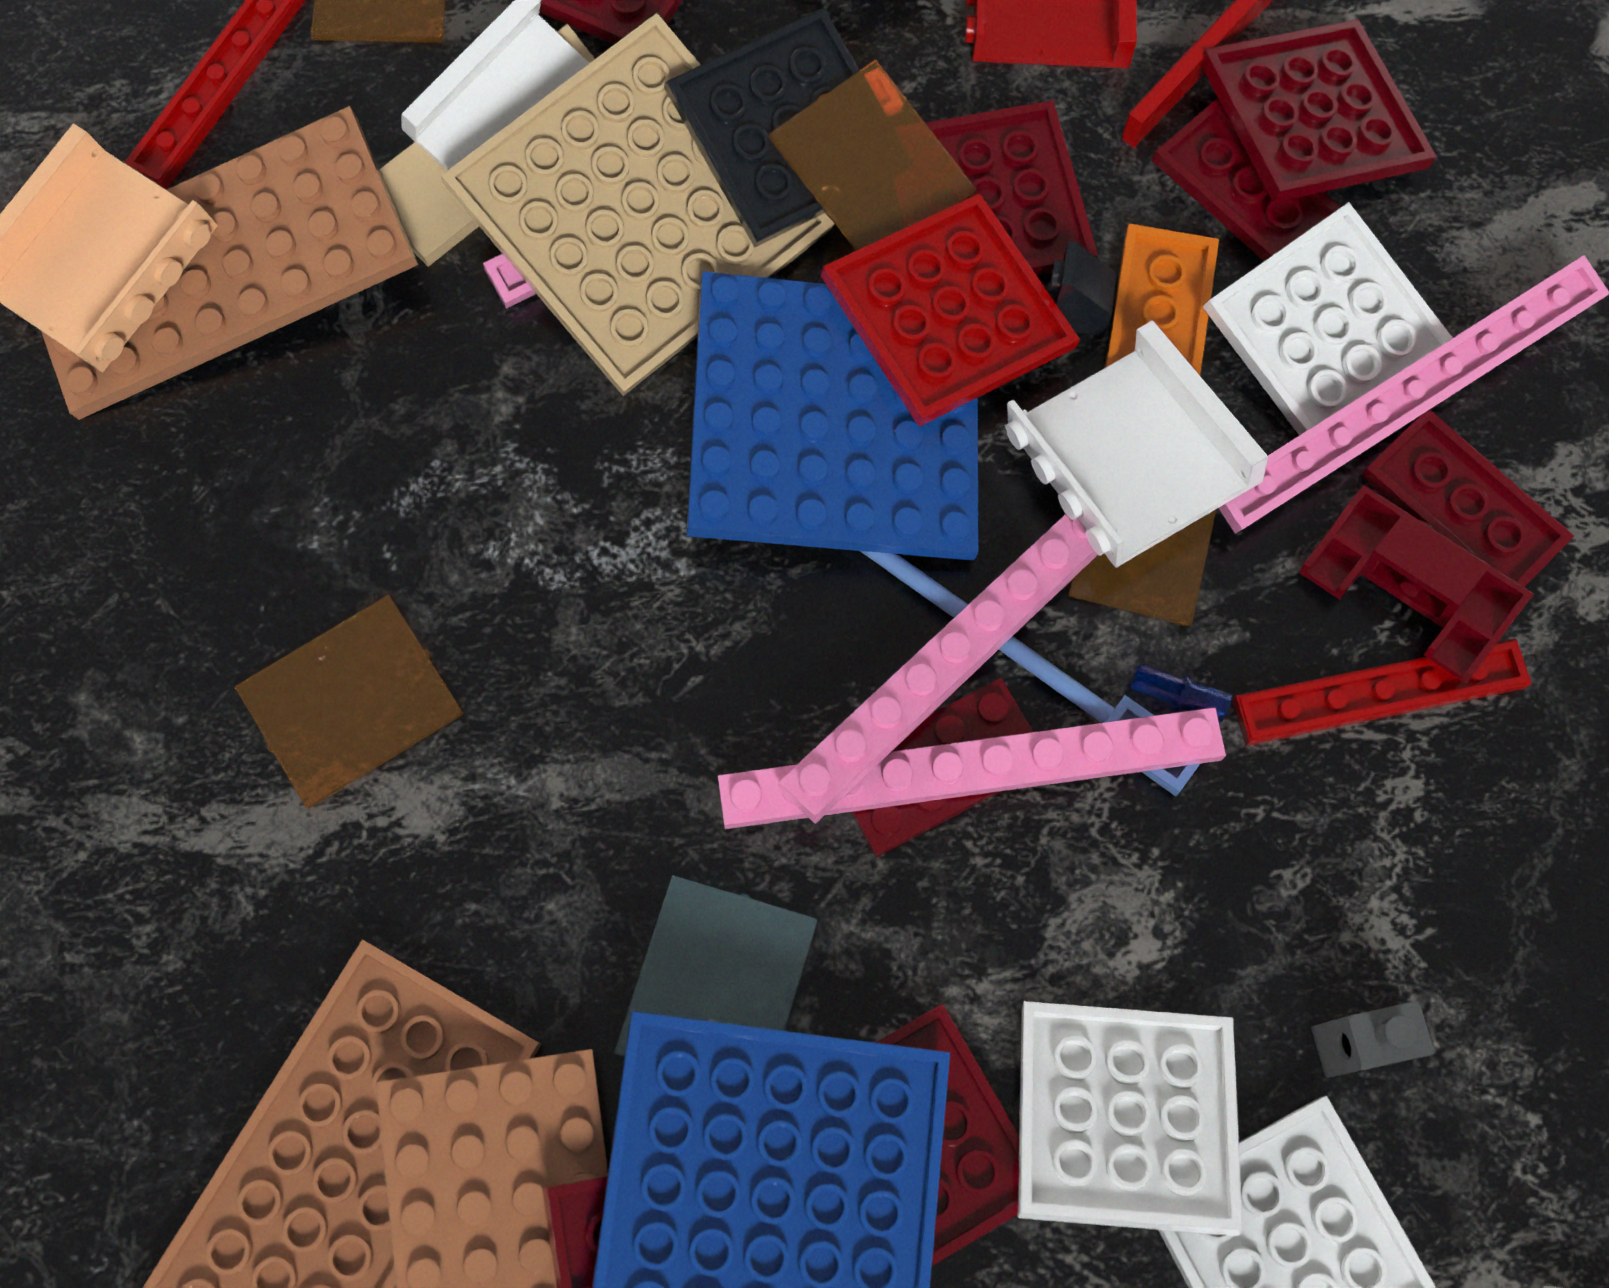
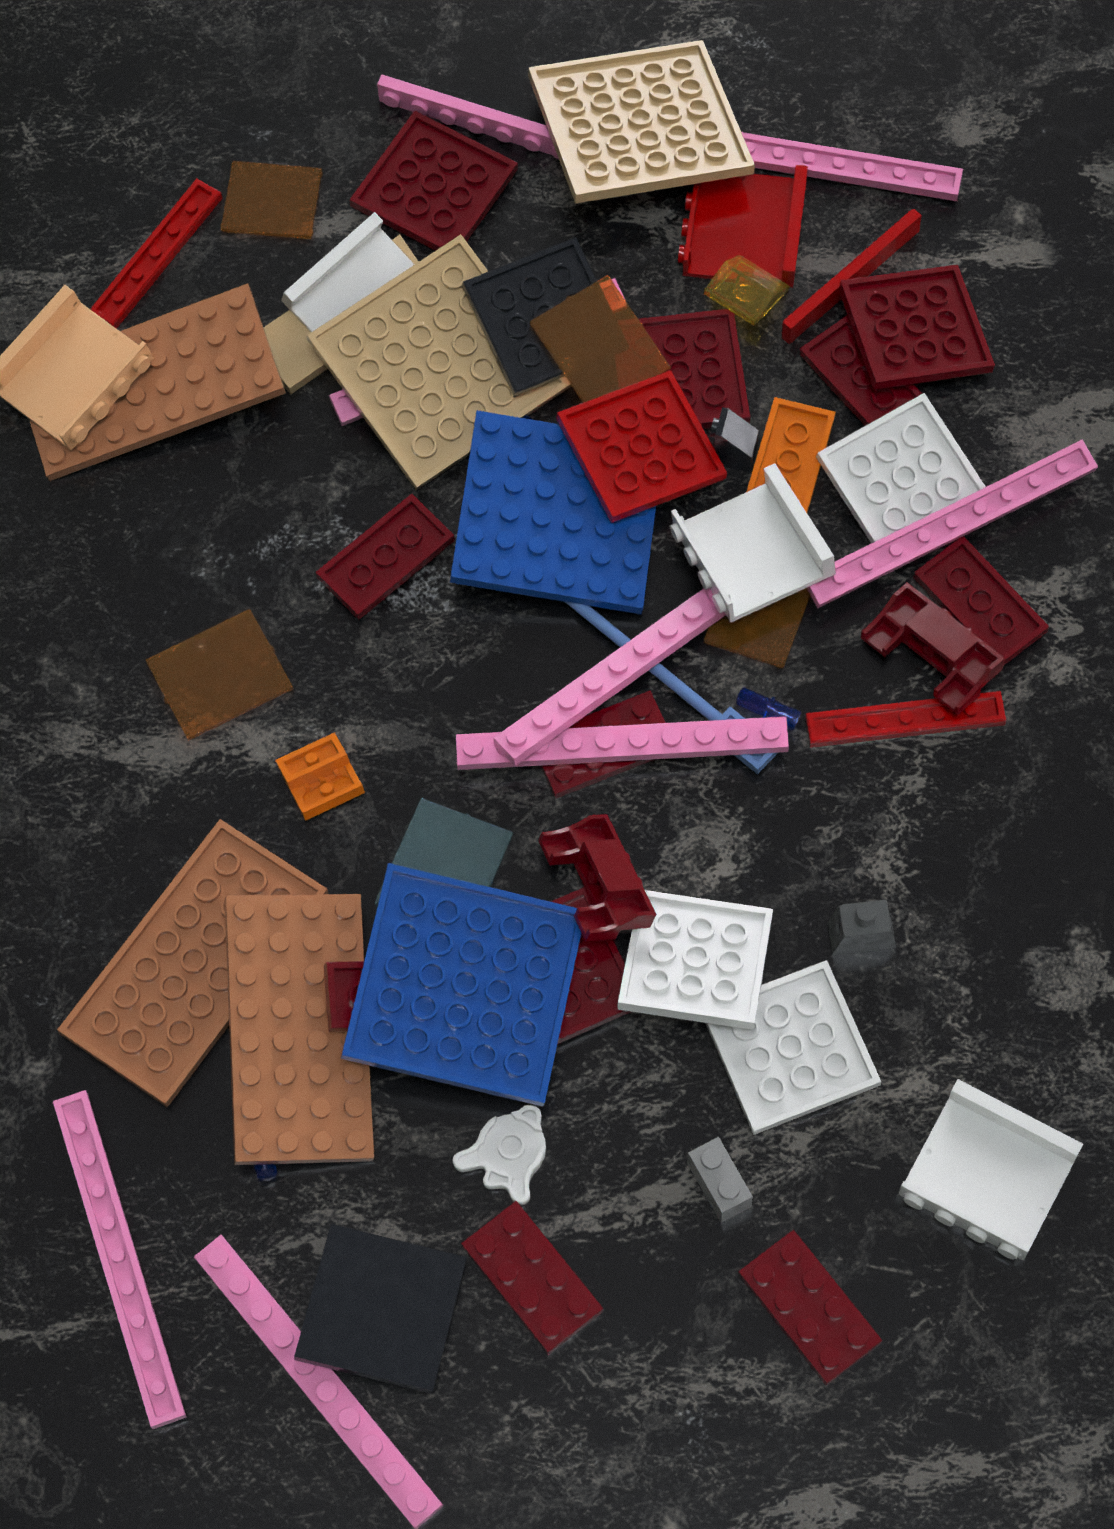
camera: 10 degrees right, 5 degrees down
(513, 853) = (320, 776): none -> orange slope
(585, 500) = (385, 556): none -> dark red plate
(976, 990) = (606, 875): none -> dark red bracket
(1067, 73) = (745, 289): none -> clear yellow slope

